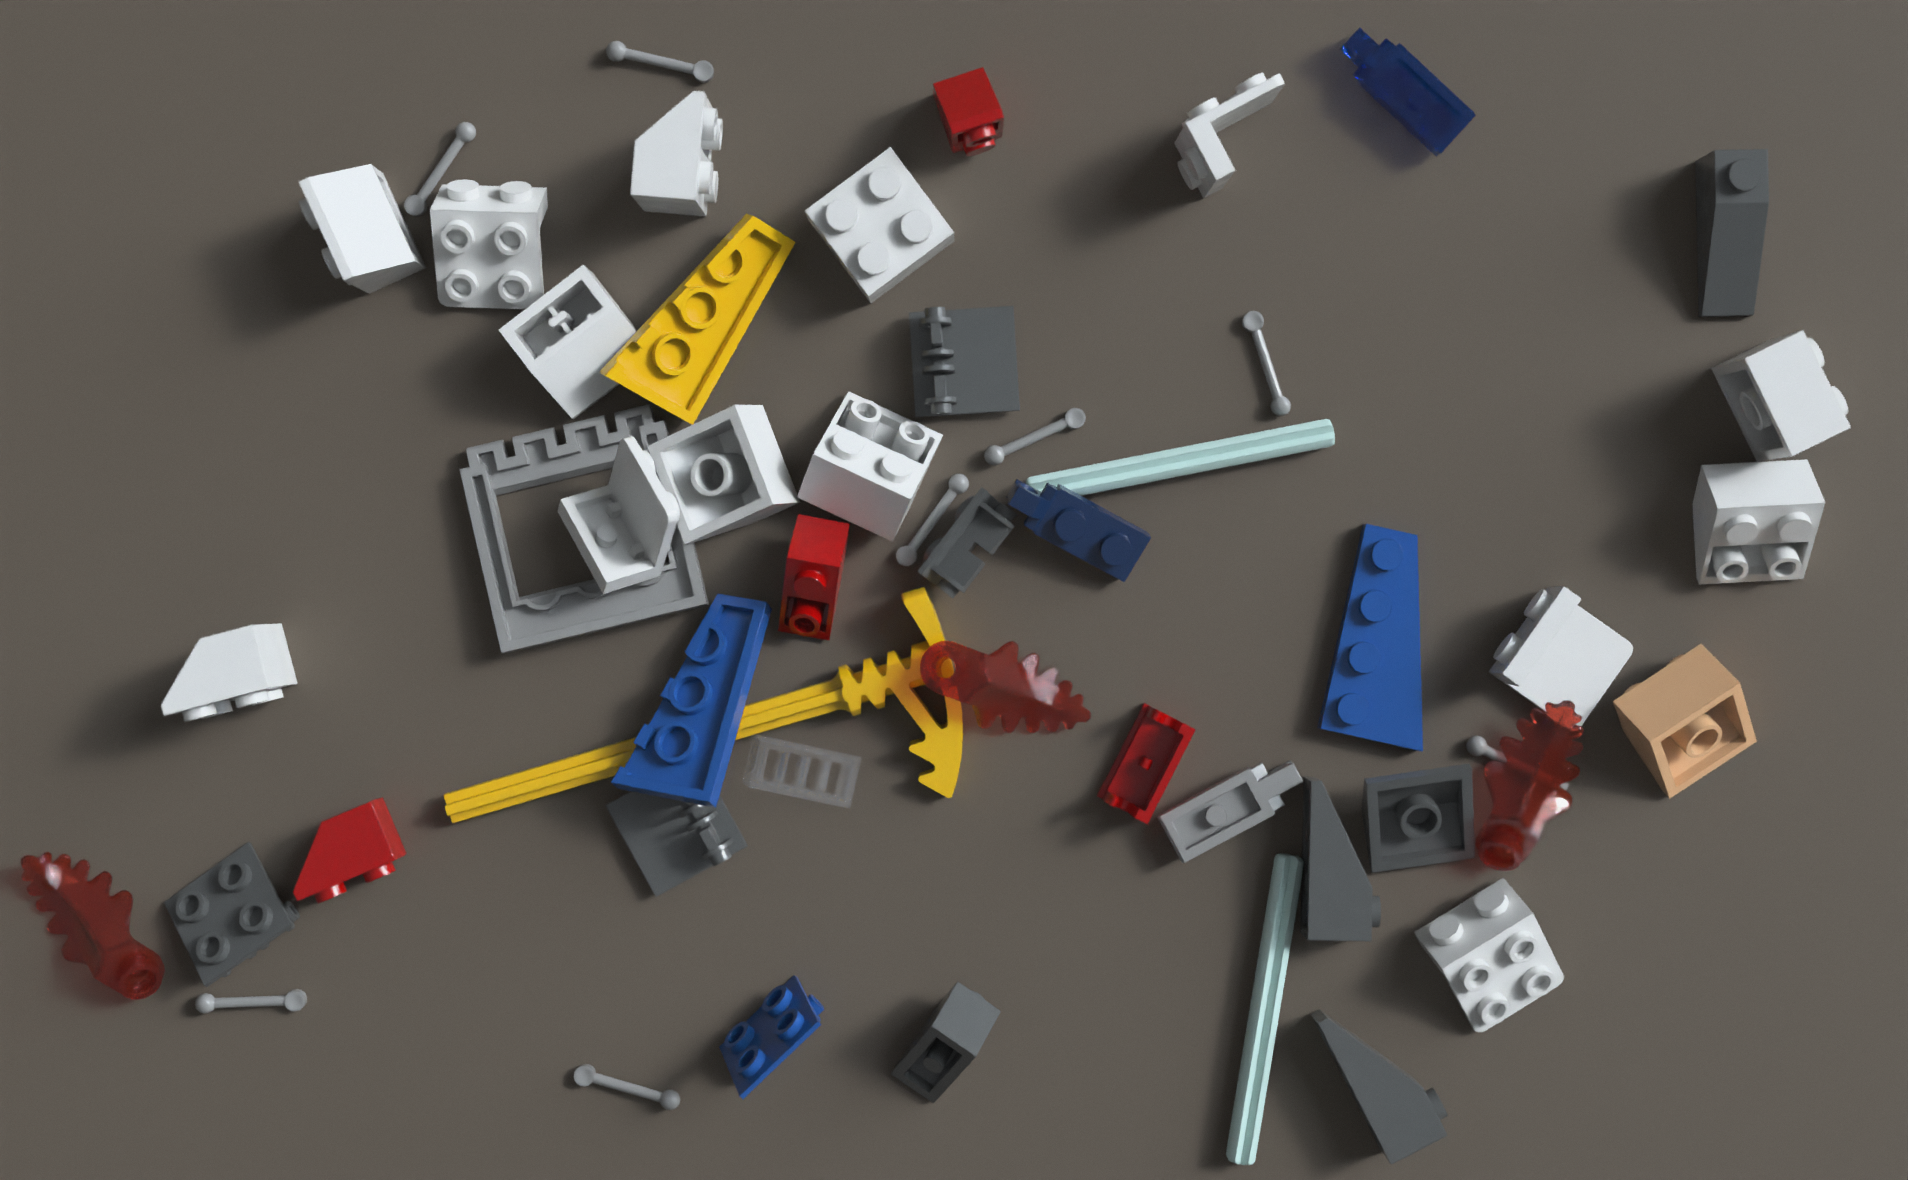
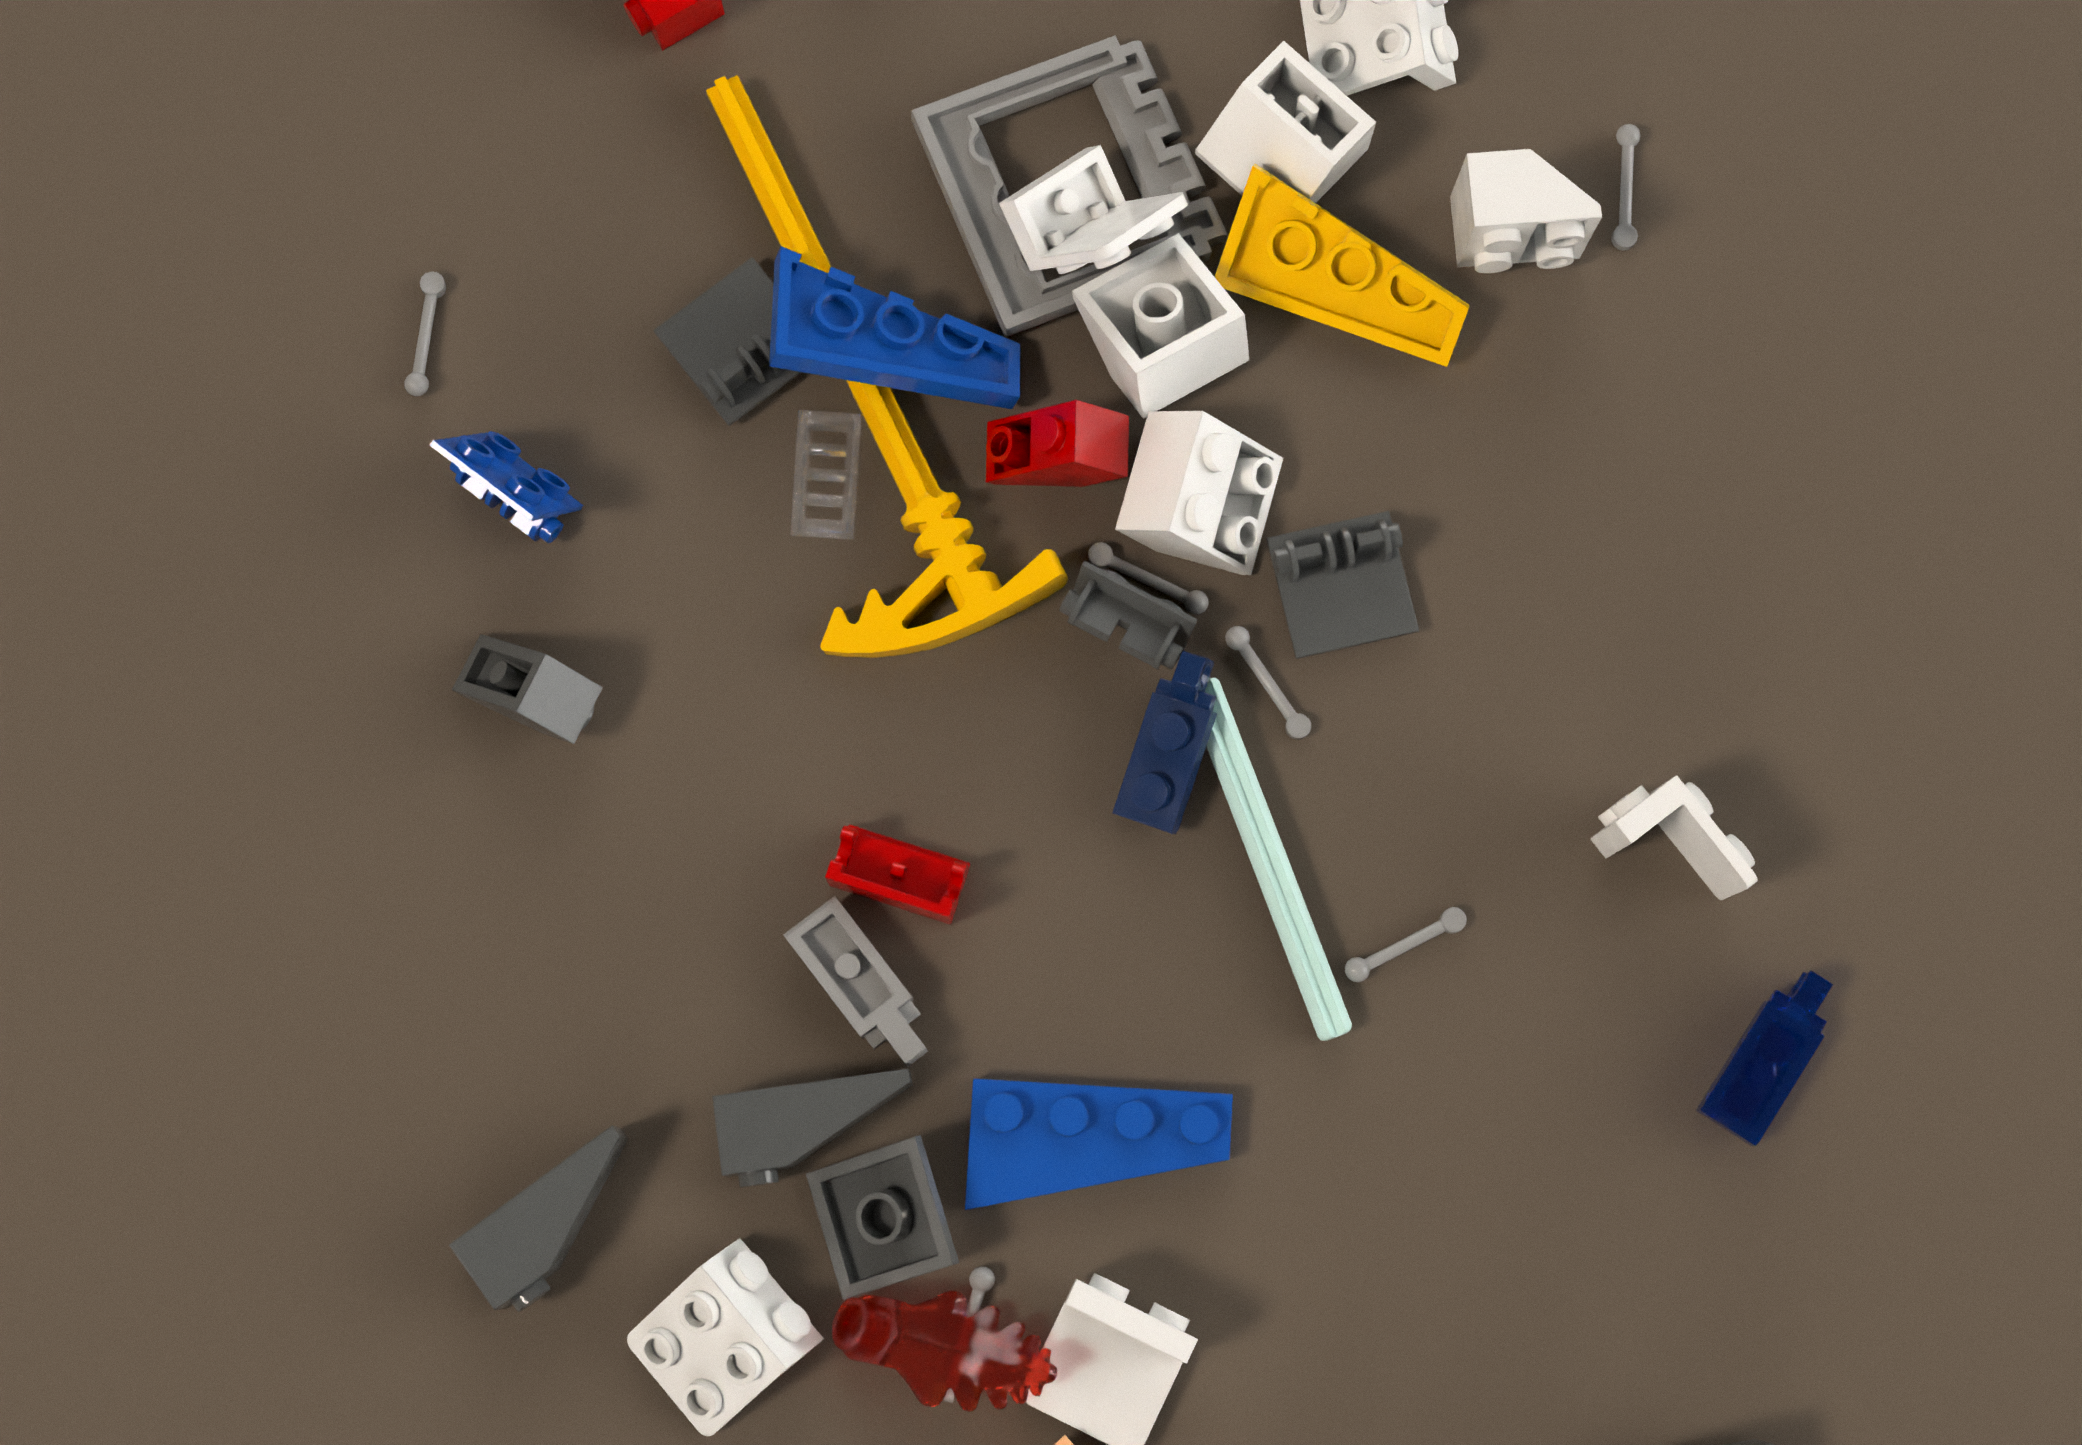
camera: 80 degrees right, 10 degrees down
(880, 225) = (1484, 457): white brick -> none
(969, 112) = (1637, 537): red slope -> none
(1003, 687) = (963, 686): clear red plant -> none
(1264, 1009) = (618, 1067): light aqua axle -> none

